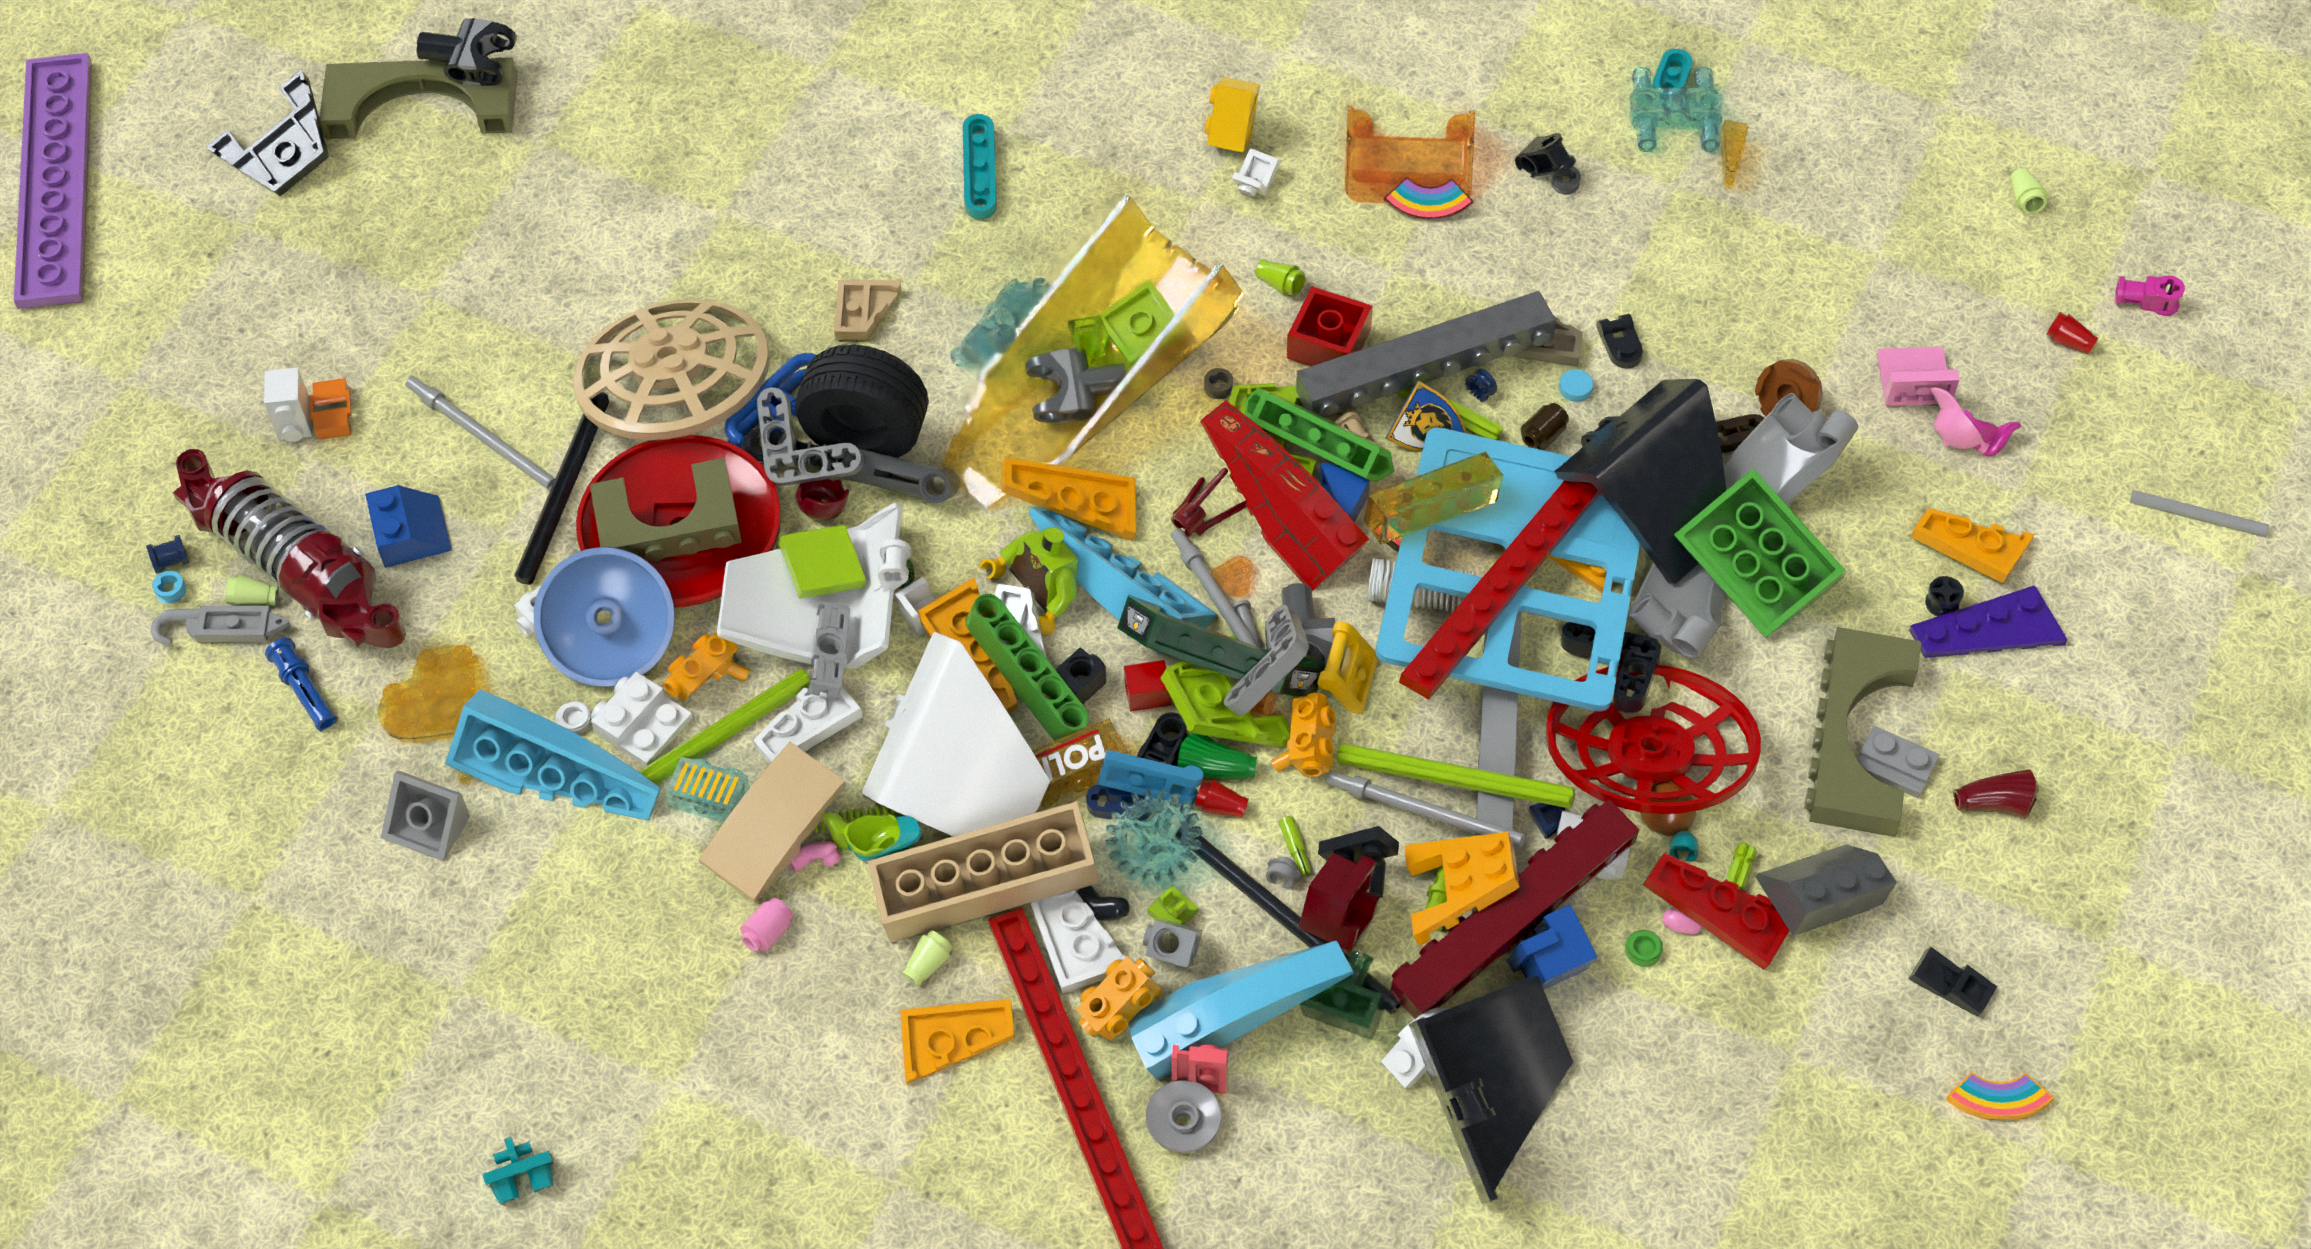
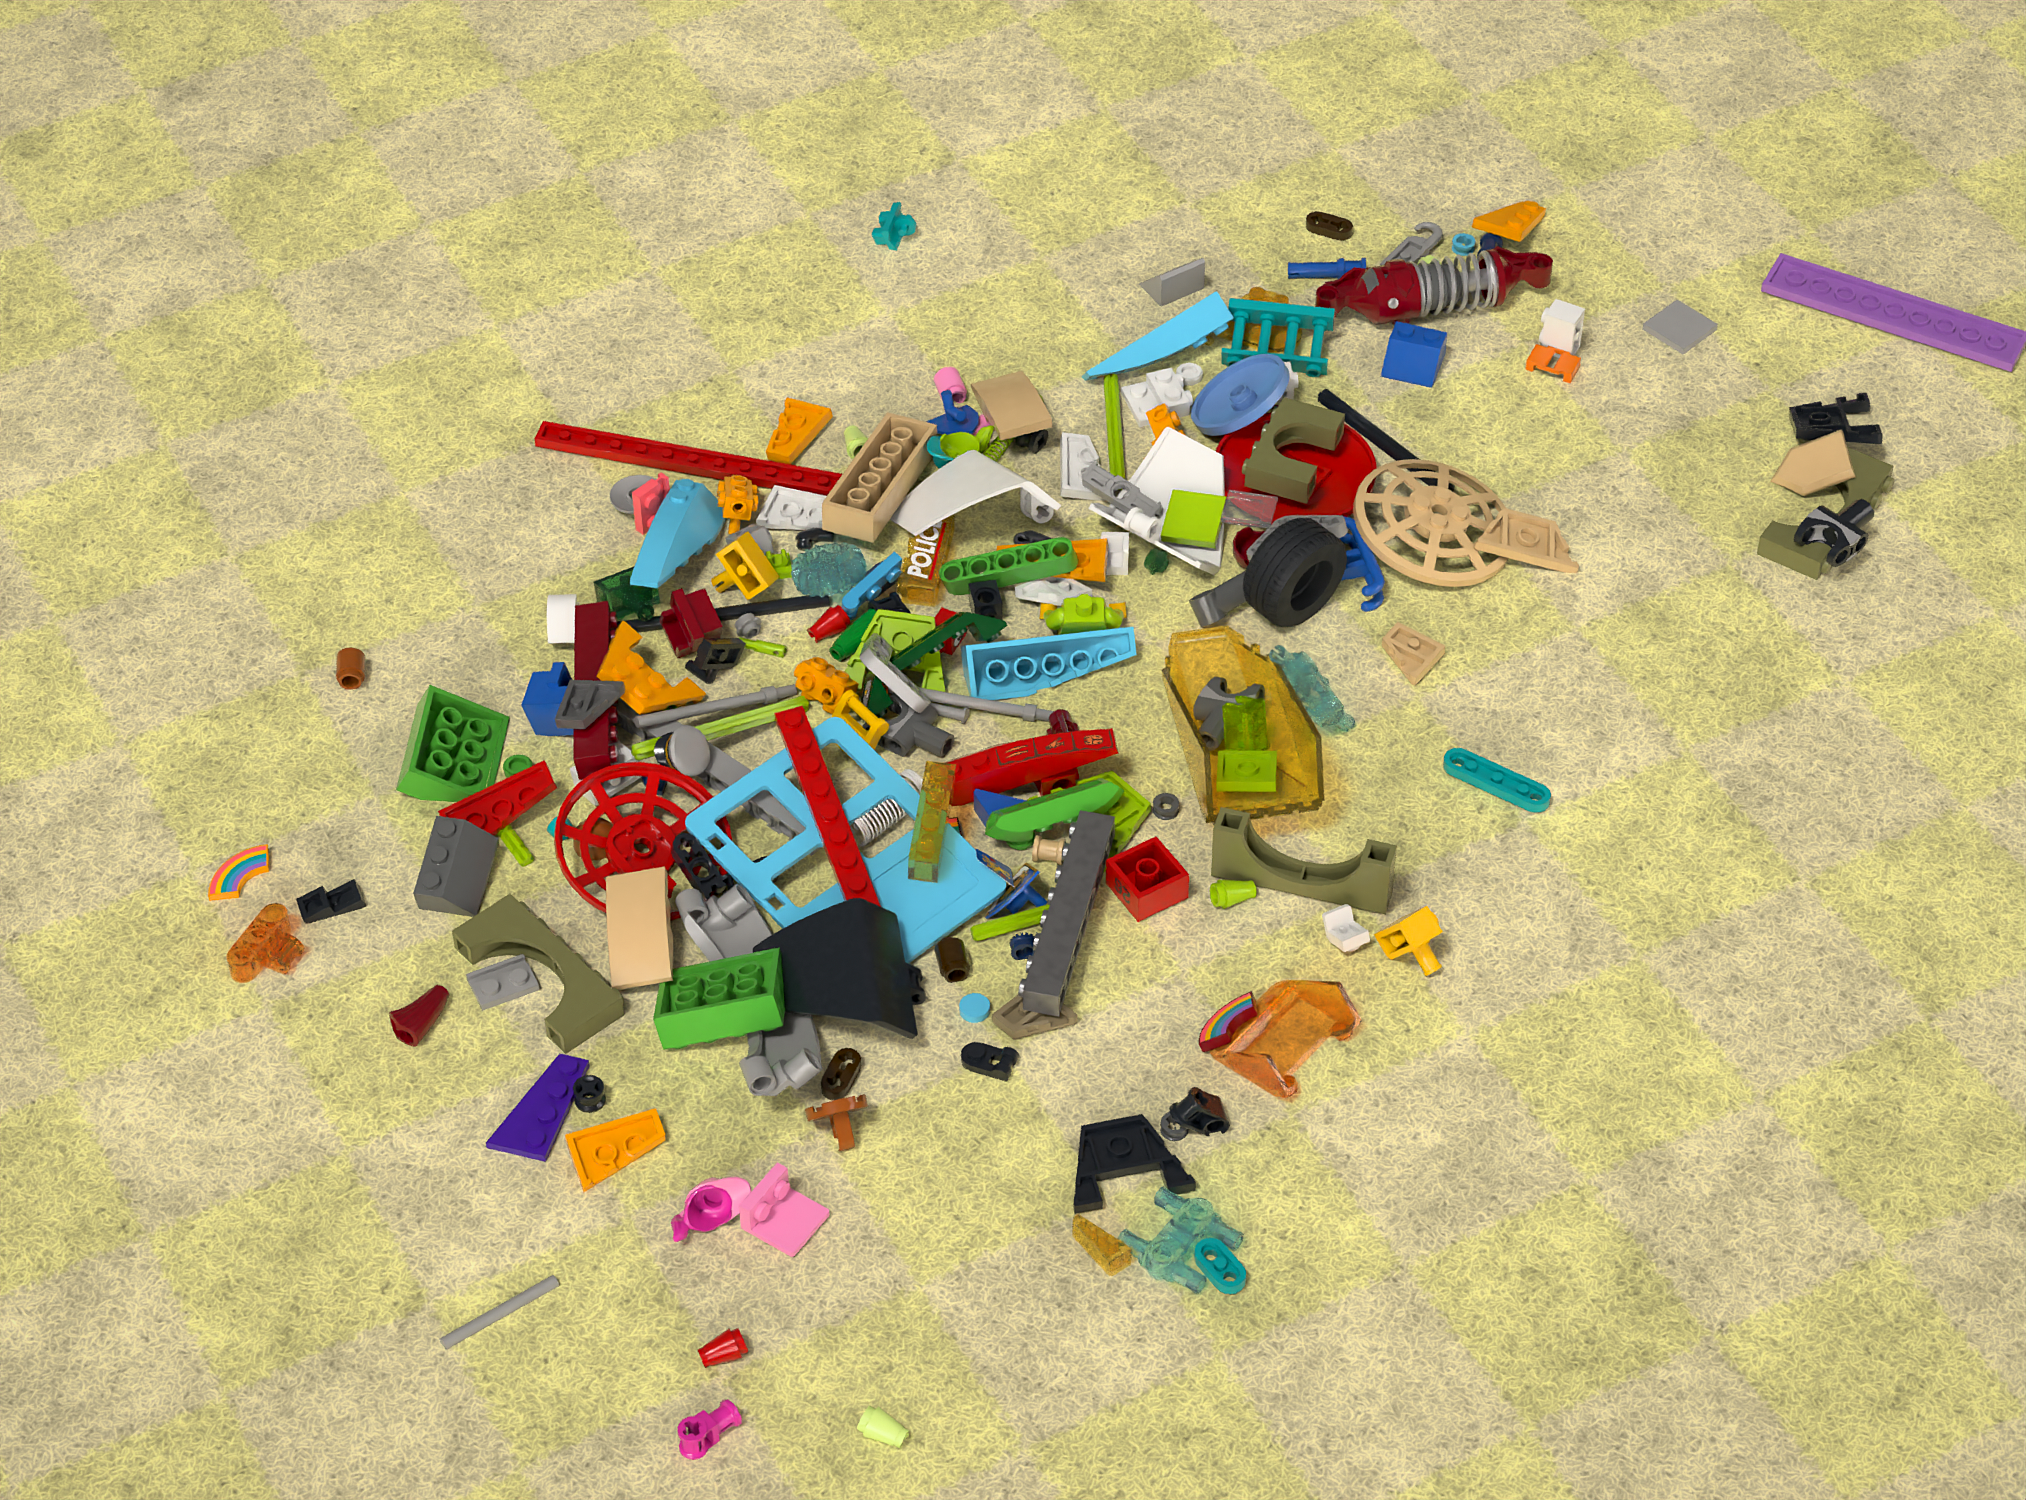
camera: 125 degrees right, 10 degrees down
(107, 548) = (1511, 221): none -> light orange wing
(192, 337) = (1680, 326): none -> light grey tile
(207, 729) = (1329, 226): none -> dark brown beam
(364, 120) = (1815, 465): none -> tan tile
(436, 399) = (1519, 413): light grey bar -> none
(446, 670) = (1286, 315): none -> teal fence
(642, 288) = (1527, 540): none -> tan wing
(705, 789) = (1072, 400): clear light blue brick -> none
(784, 507) = (1249, 509): none -> clear piece
(821, 884) = (955, 419): none -> blue shield
(1080, 494) = (1130, 669): light orange wing -> none
(1202, 186) = (1244, 856): none -> olive arch
(1222, 906) = (744, 567): none -> yellow brick
(1234, 576) = (993, 727): clear orange tile -> none
(1419, 448) = (996, 866): none -> blue sticker
(1494, 1073) = (504, 606): black panel -> none
(1531, 762) = (683, 750): none -> light grey piece
(1566, 863) = (586, 702): none -> flat silver wing
(1631, 200) = (1119, 1150): none -> black wing
(1667, 1208) = (350, 668): none -> dark orange brick
(1686, 1017) = (451, 748): none -> bright green slope
(1752, 665) = (639, 928): none -> tan slope
(2056, 973) = (264, 944): none -> clear orange piece

